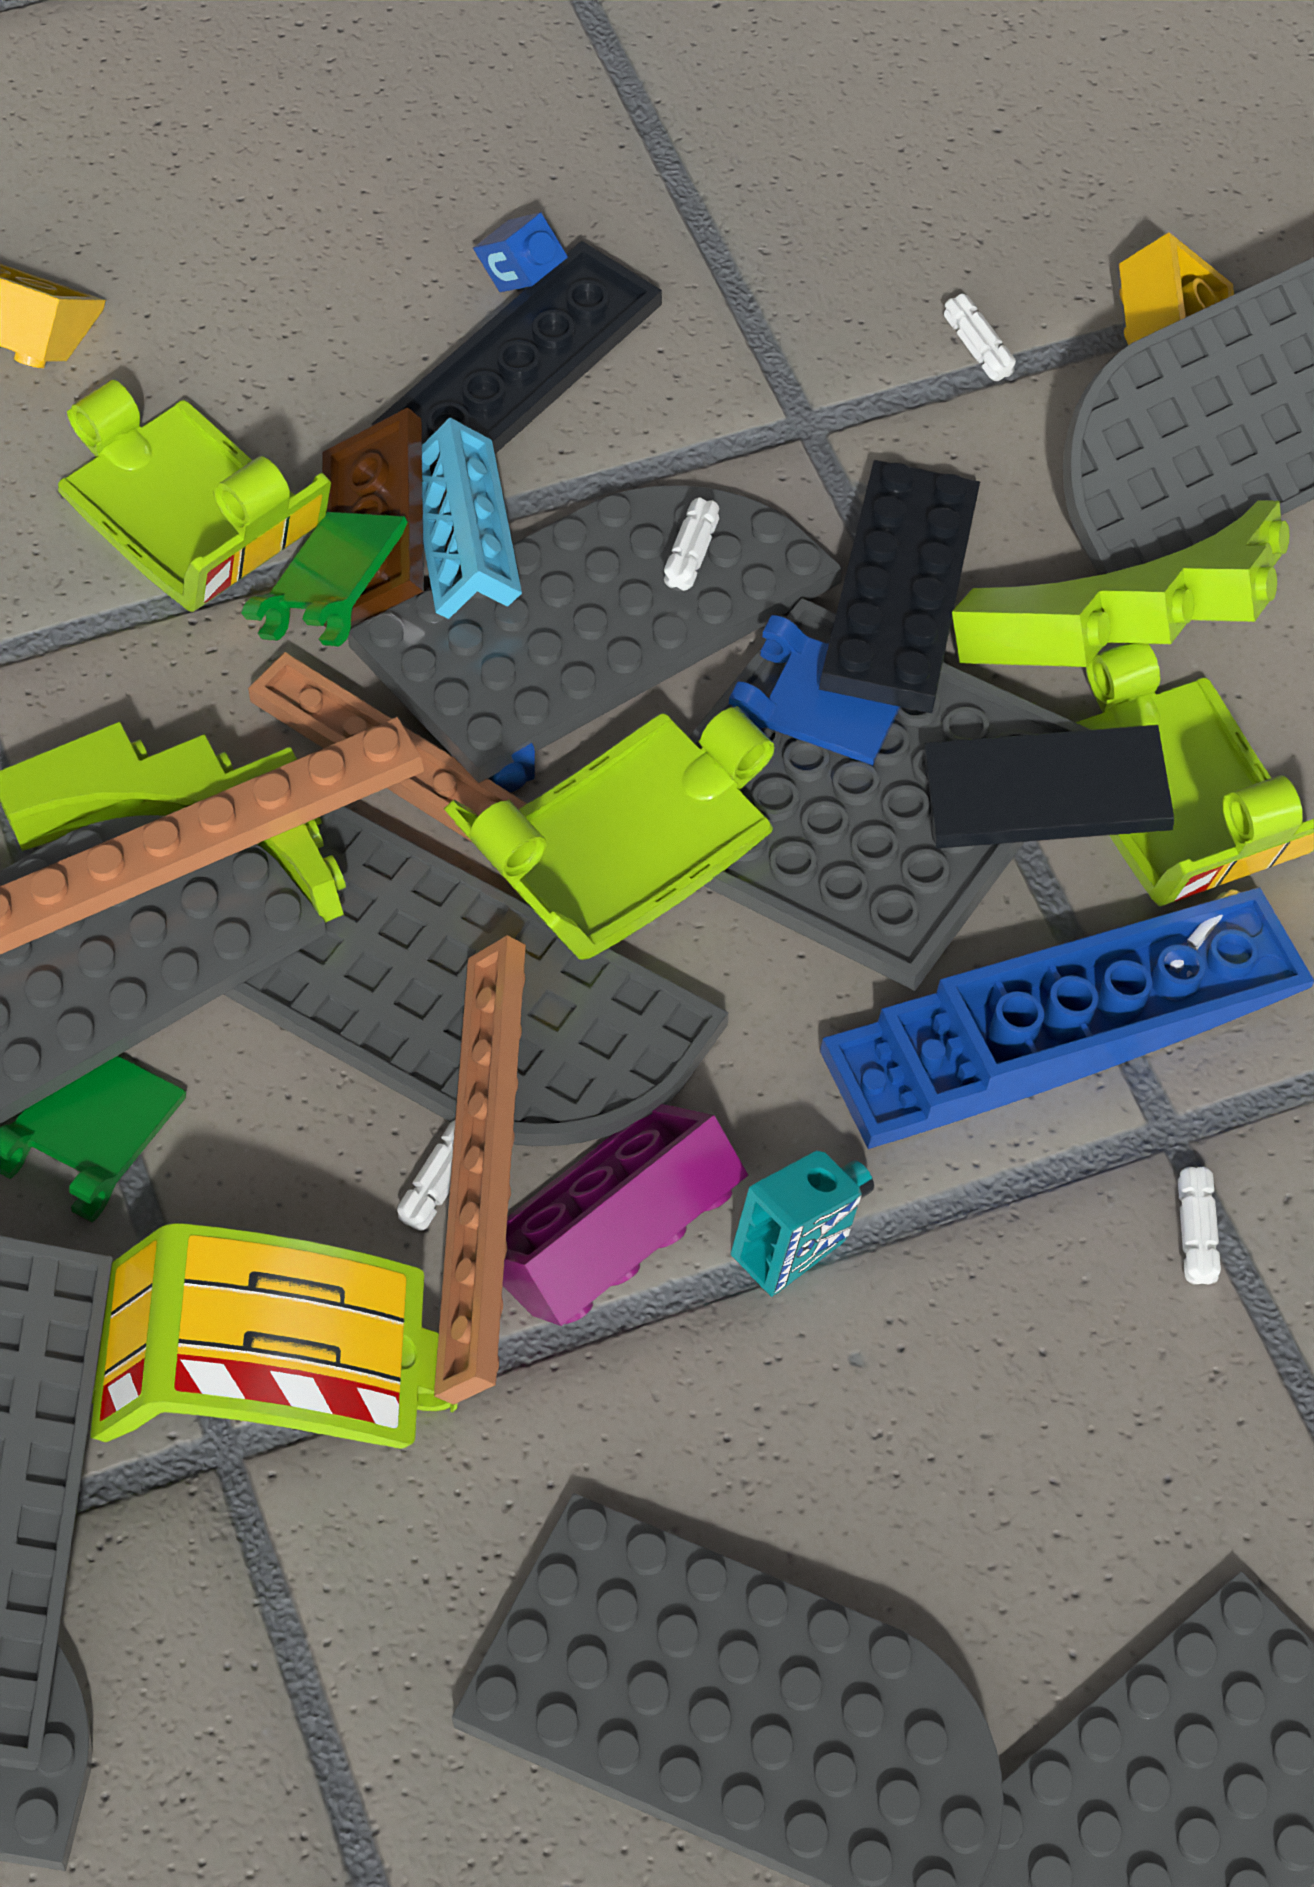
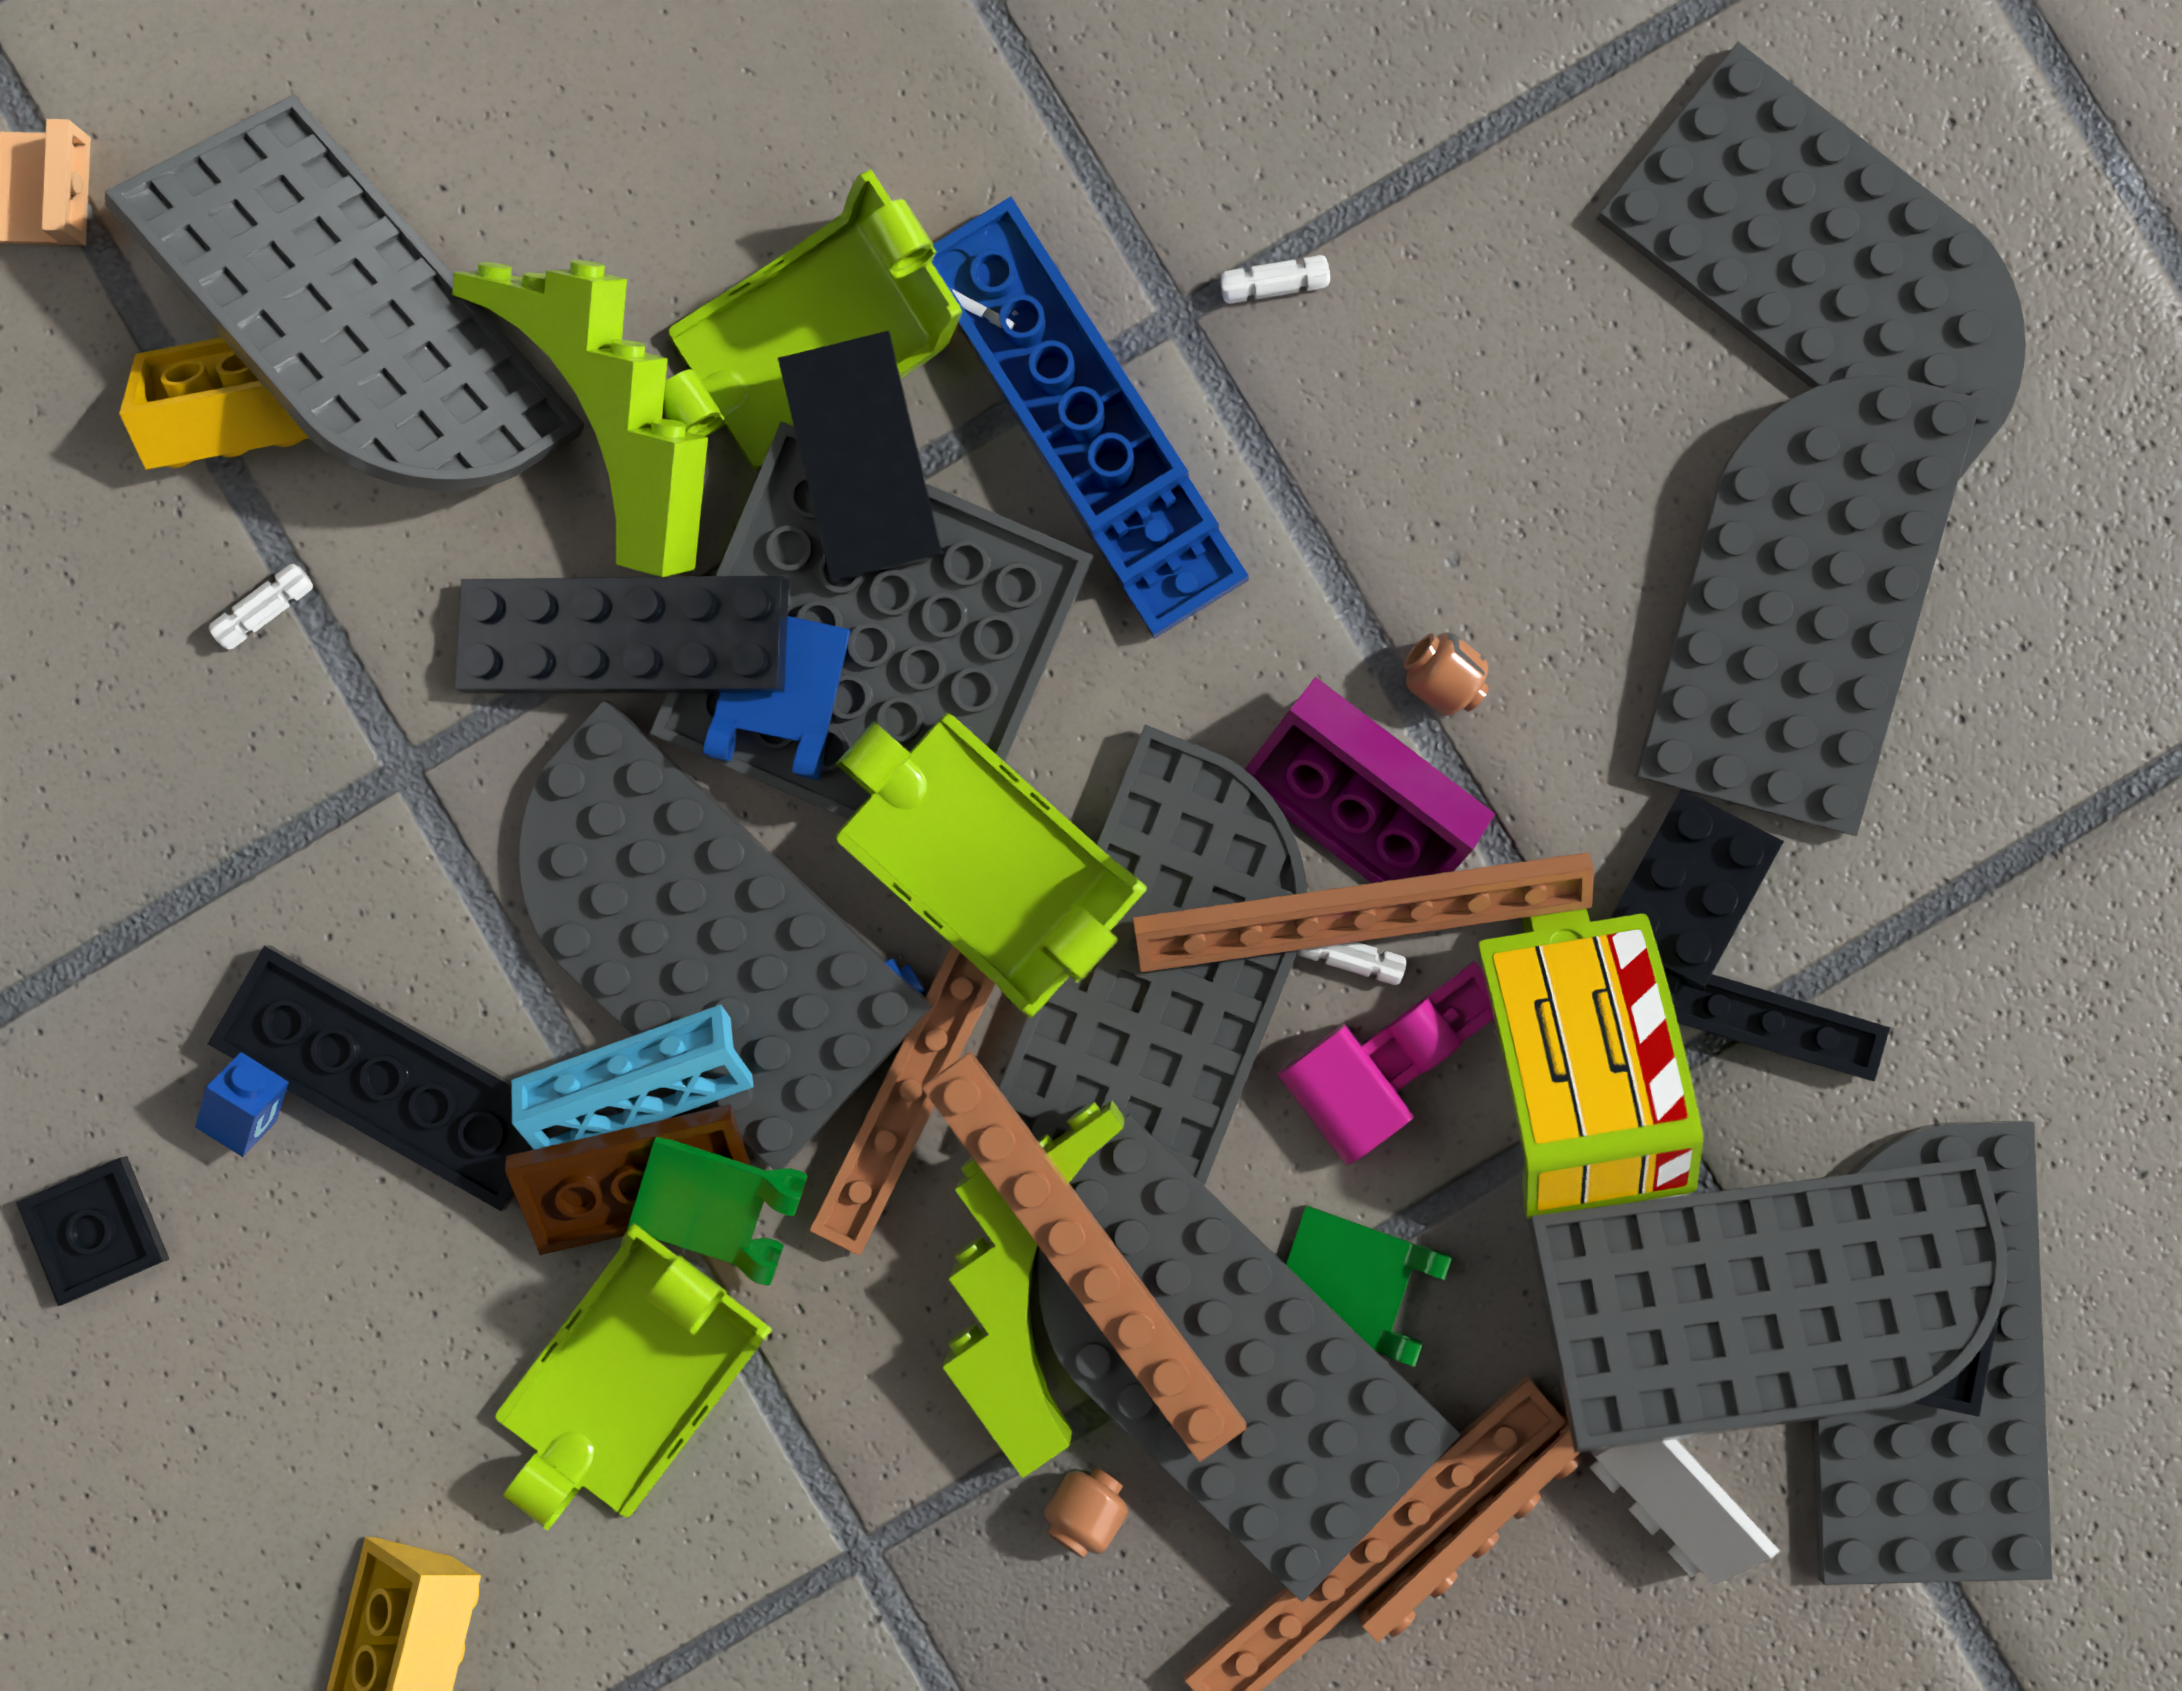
camera: 95 degrees left, 30 degrees up
(257, 1586) = (1781, 1025): none -> black plate
(301, 1153) = (1354, 1086): none -> dark pink plate
(431, 1525) = (1698, 884): none -> black plate
(436, 154) = (92, 1230): none -> black tile
(691, 544) = (616, 849): white axle -> none
(727, 1310) = (1446, 673): none -> nougat head
(798, 1218) = (1363, 637): teal torso -> none

